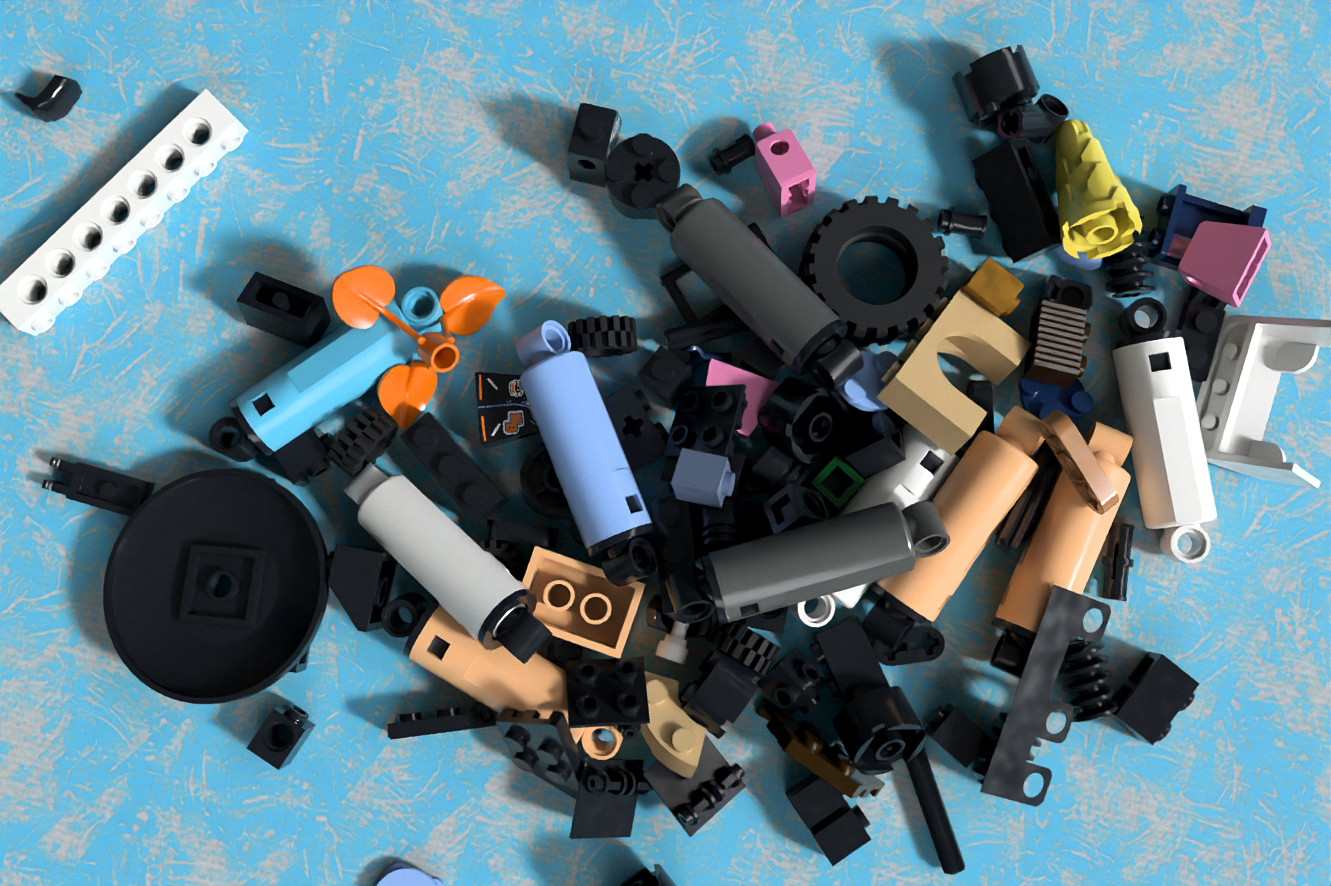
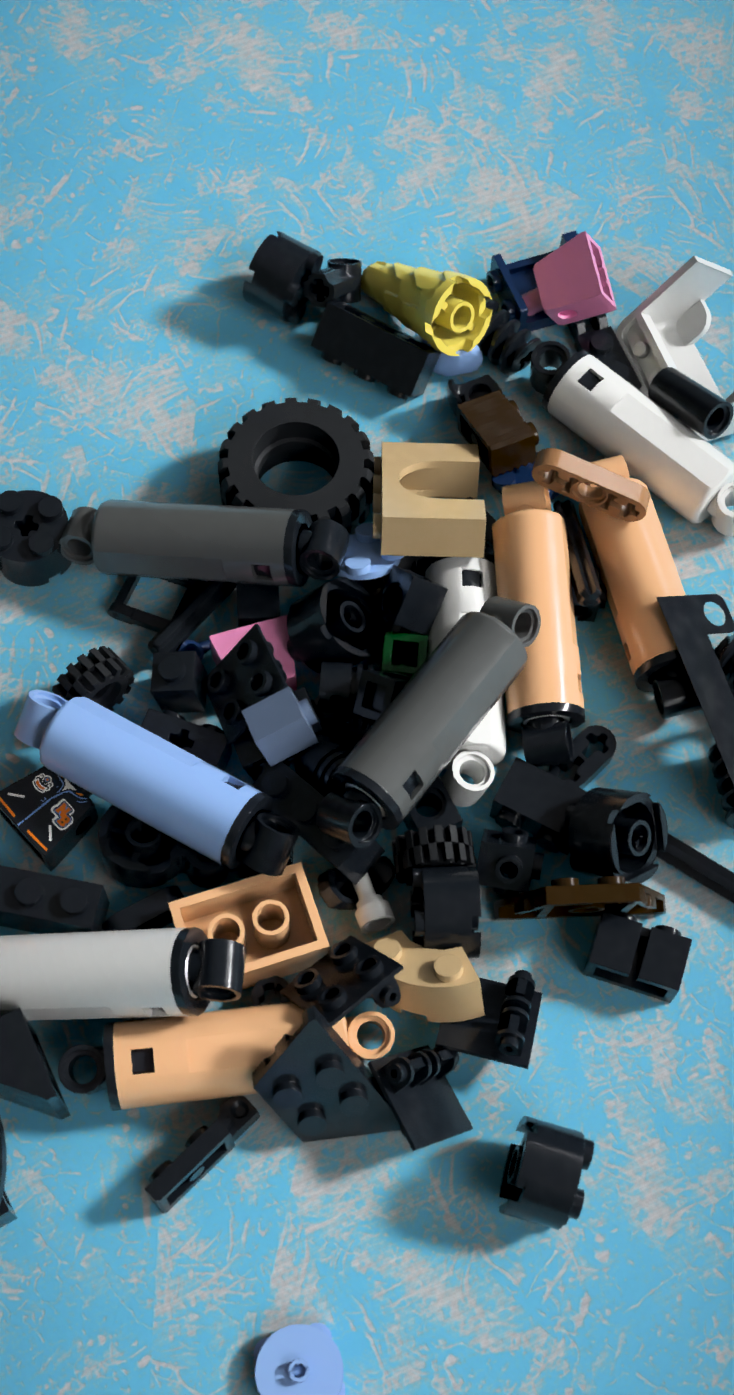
camera: 40 degrees left, 20 degrees down
(267, 743) = (52, 1314): black brick -> none
(732, 154) = (94, 478): black pin -> none
(784, 169) = (155, 450): bright pink torso -> none
(956, 734) = (688, 799): black brick -> none
(961, 223) = (345, 397): black pin -> none
(993, 288) = (409, 422): pearl gold brick -> none
(1117, 561) = (682, 547): black pin -> none
(1224, 438) = (691, 402): none -> black pin

